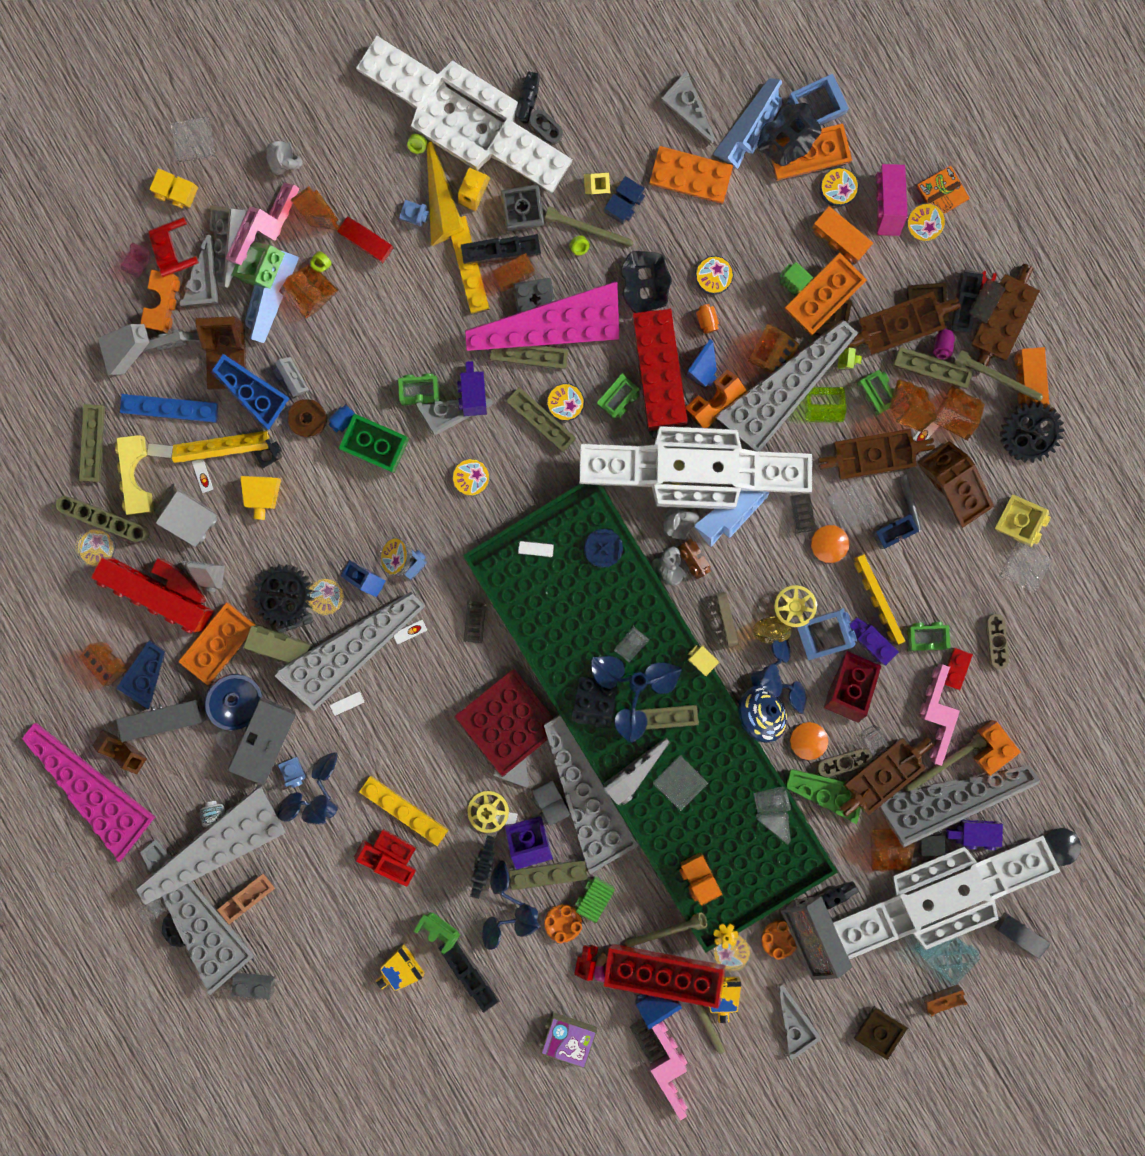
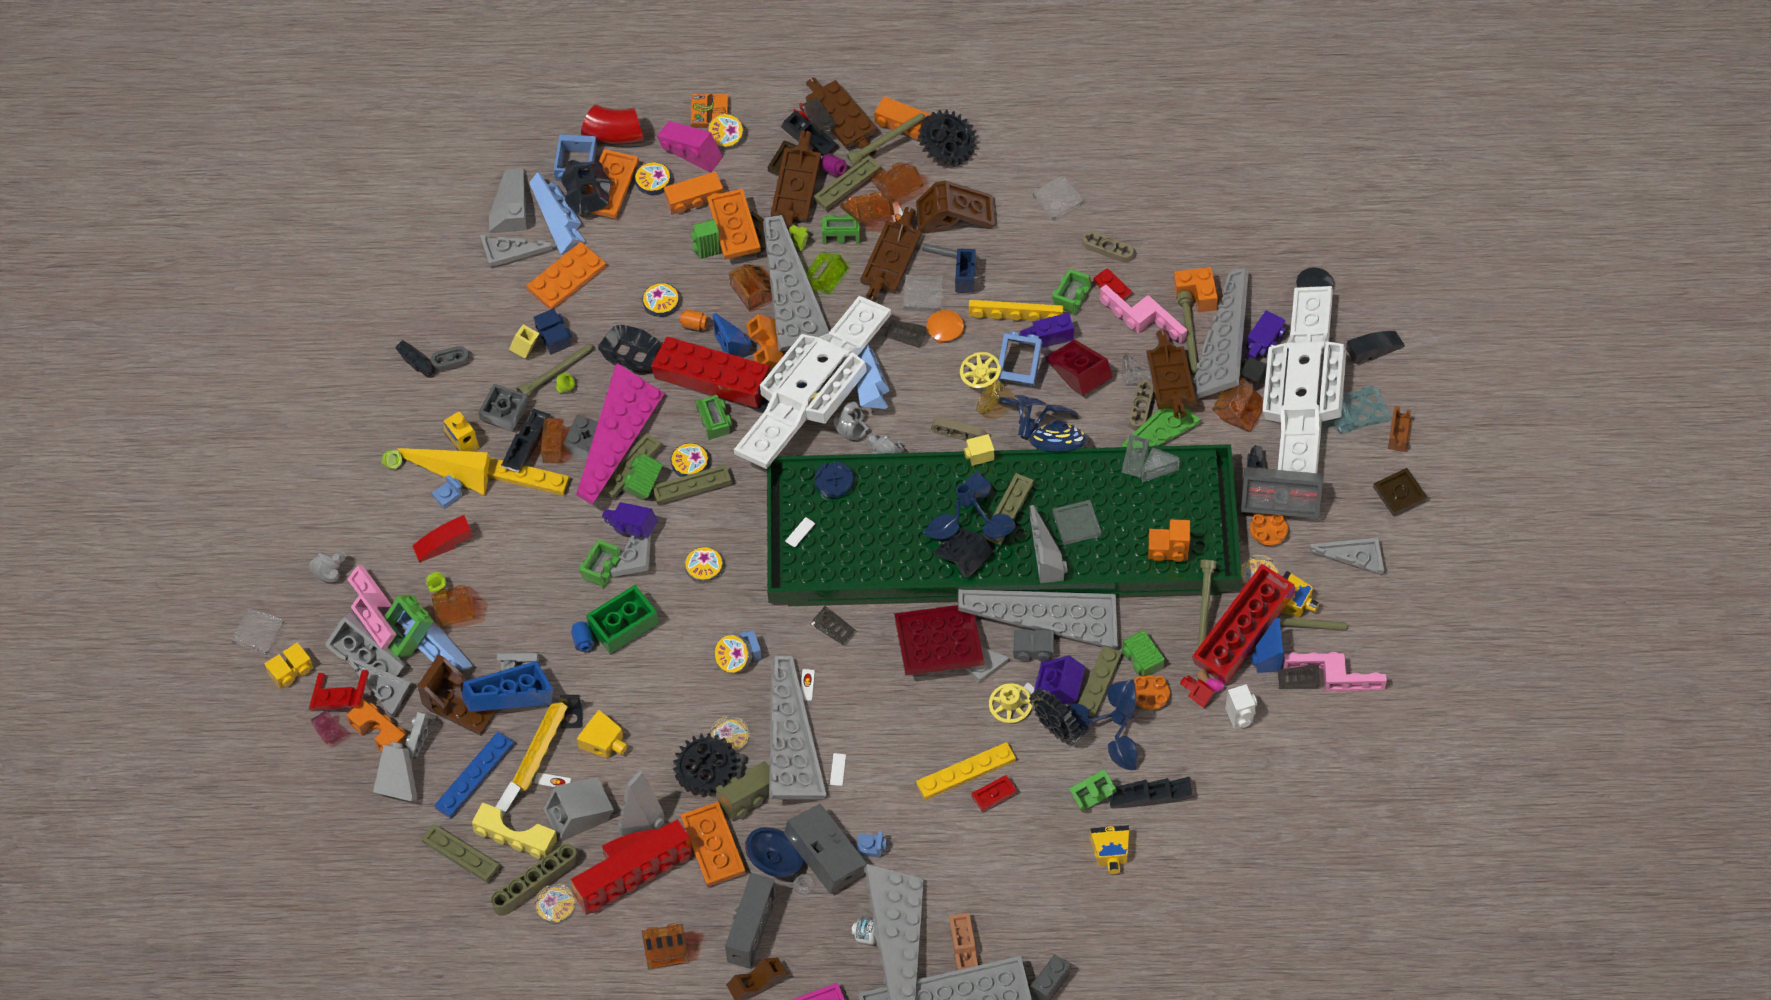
camera: 55 degrees left, 30 degrees down
(143, 675) = (698, 923): dark blue wing -> none
(307, 407) = (569, 673): reddish brown plate -> none
(315, 209) = (392, 558): clear orange slope -> none
(321, 806) = (915, 809): dark blue plant -> none
(363, 578) = (733, 692): blue slope -> none
(384, 864) = (1003, 809): red slope -> none
(457, 131) = (401, 425): white piece -> none
(520, 374) = (642, 476): none -> bright green brick
(568, 1040) = (1260, 740): brick -> none
(585, 1012) = (1240, 706): none -> white brick
(631, 644) = (929, 494): clear slope -> none
(688, 552) = (894, 430): dark orange hinge -> none
(725, 935) = (1234, 554): yellow plant -> none
(735, 75) = (509, 204): none -> light grey wedge
(809, 741) = (1105, 422): orange dish -> none
(870, 116) = (612, 125): none -> red brick
(1023, 520) = (1017, 179): light yellow plate -> none

